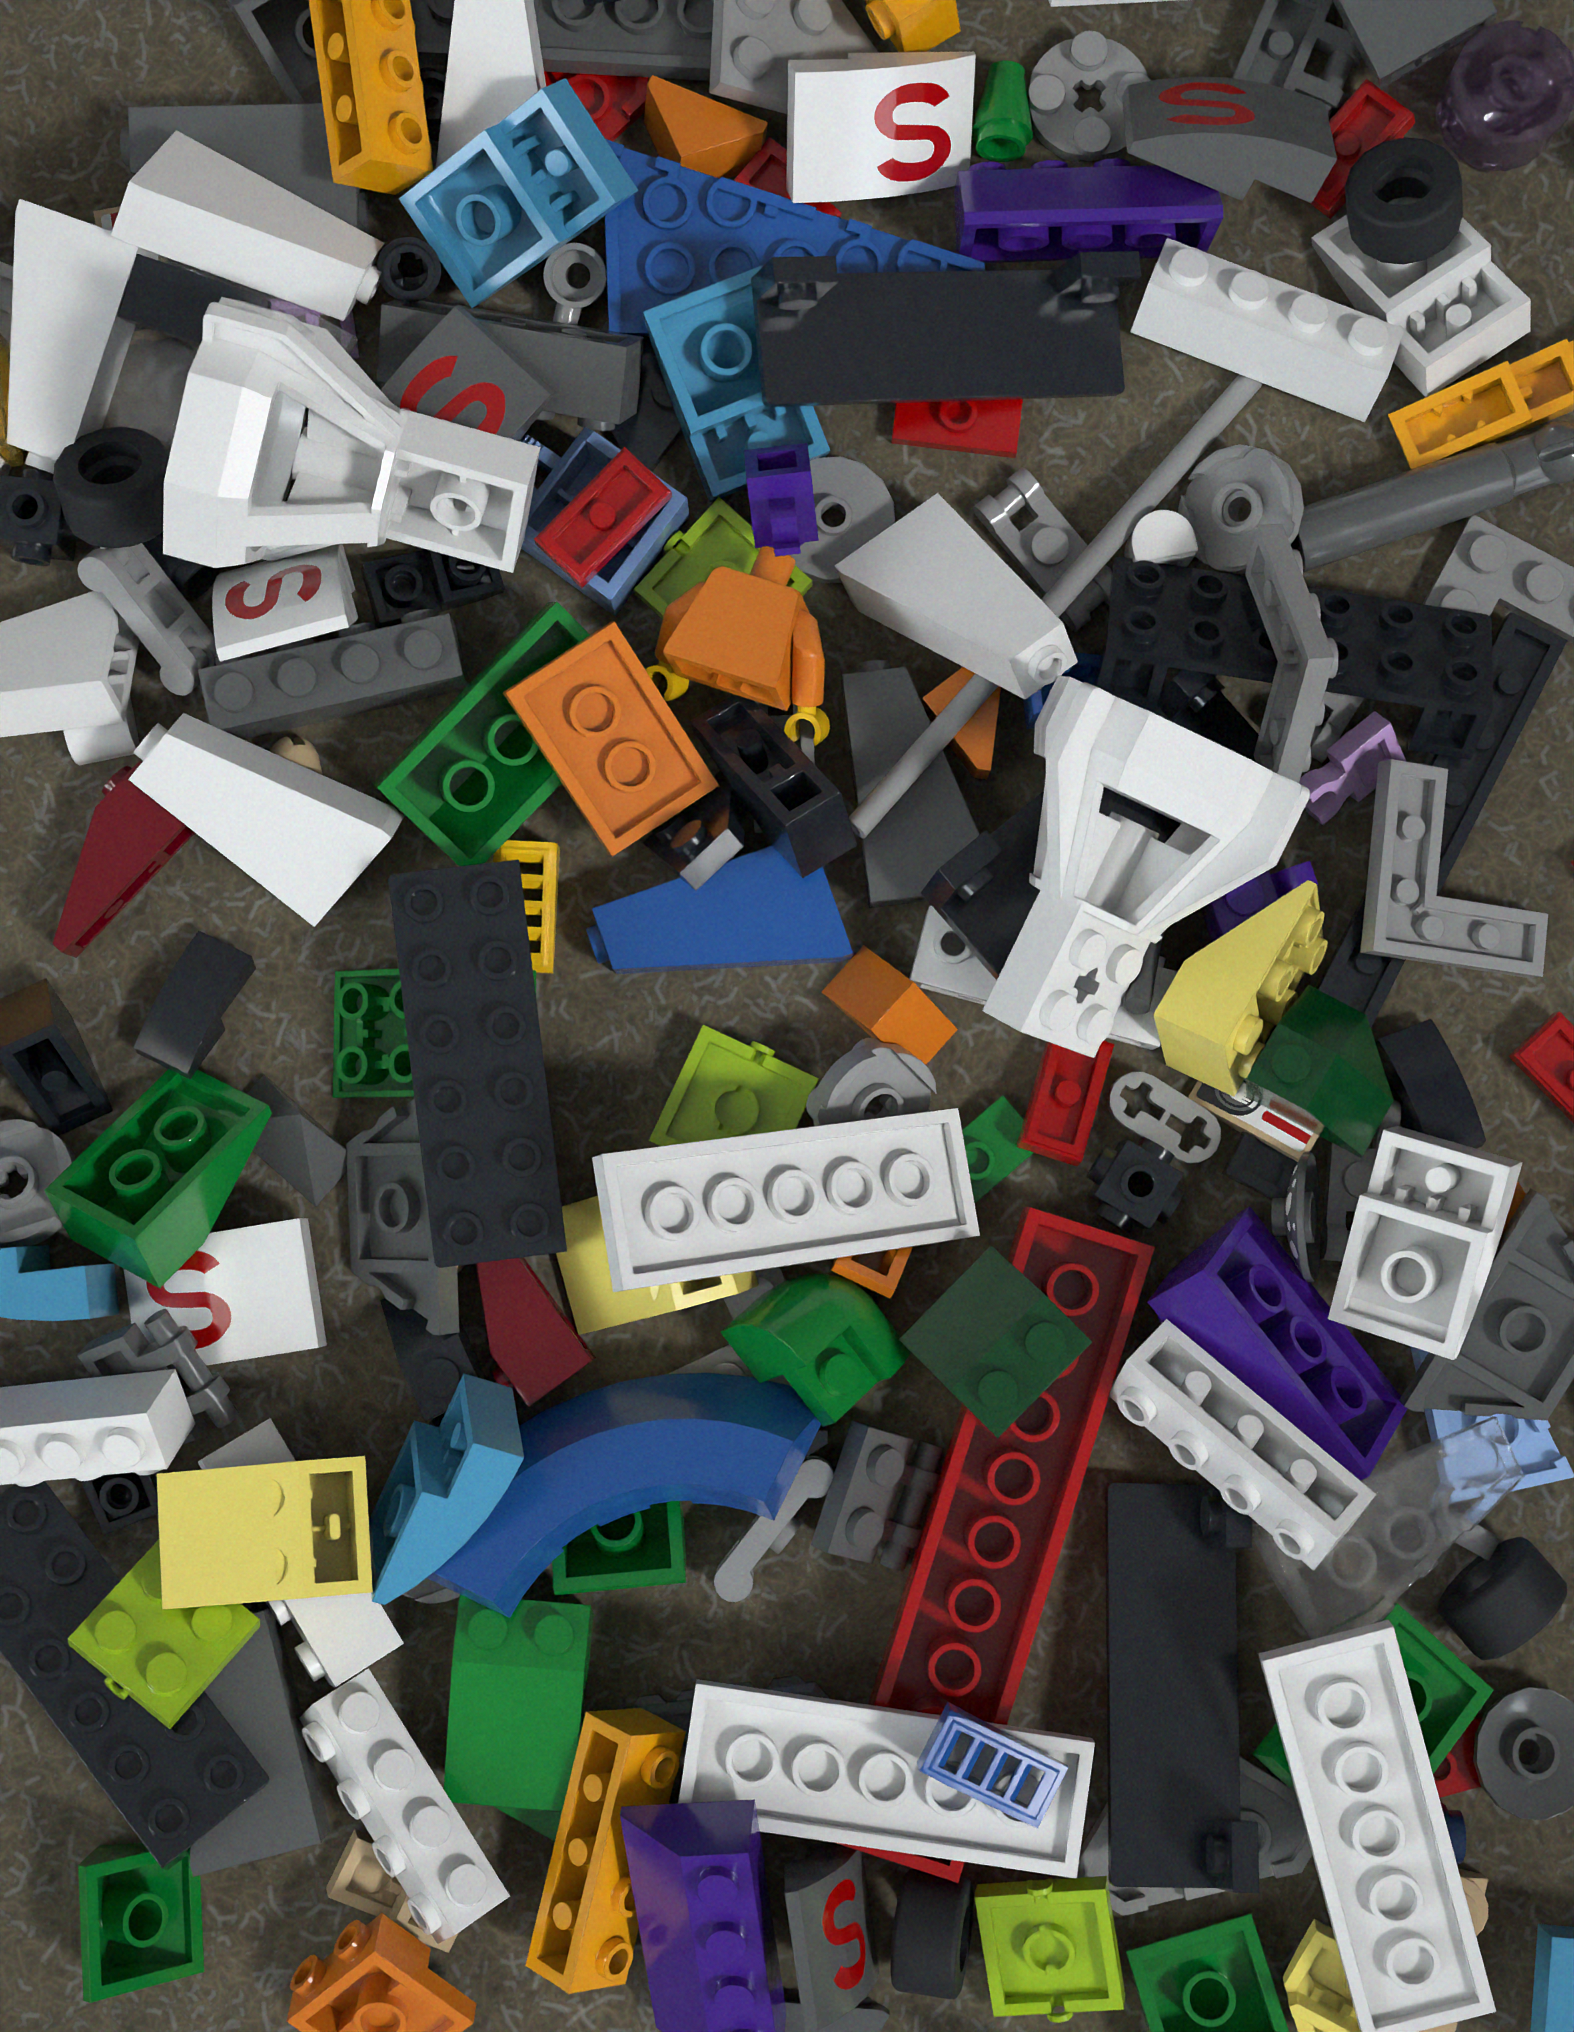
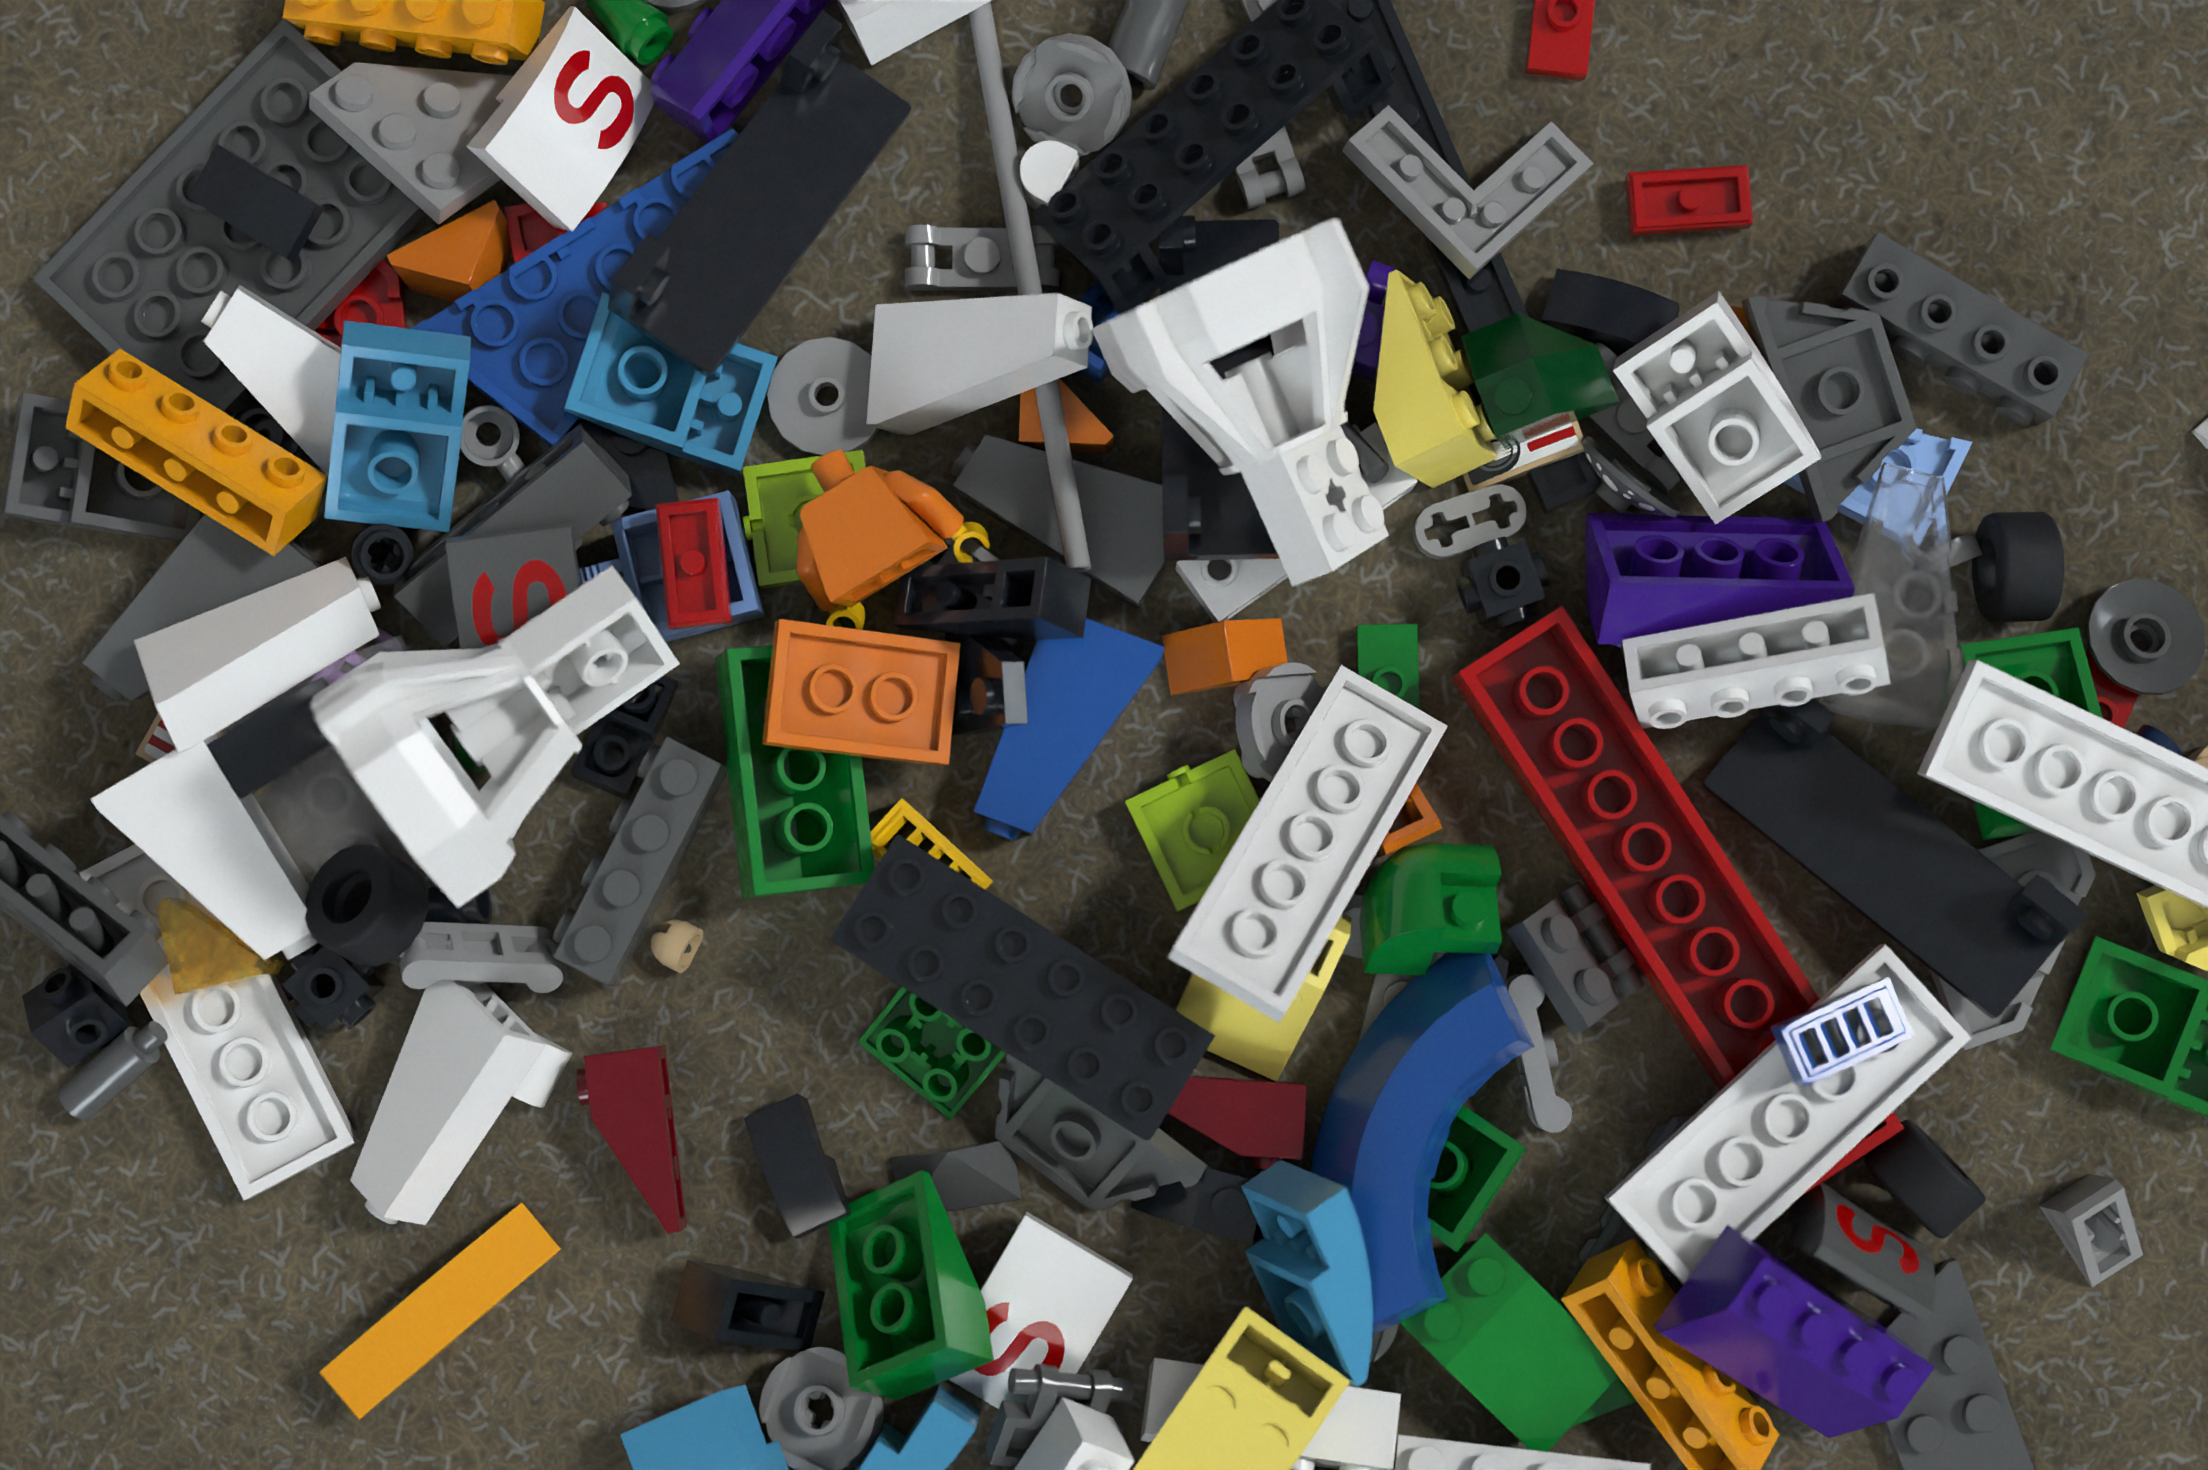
camera: 50 degrees left, 0 degrees up
(265, 813) = (704, 994): white slope -> none
(282, 601) = (559, 854): white slope -> none
(781, 497) = (786, 421): dark purple brick -> none
(960, 426) = (838, 246): red plate -> none
(995, 1341) = (1537, 776): dark green slope -> none
(1050, 1947) = (2002, 1101): lime plate -> none
(1064, 1102) = (1400, 586): red plate -> none
(1302, 652) = (1217, 136): light grey plate -> none
(1351, 767) = (1326, 171): lavender plate -> none

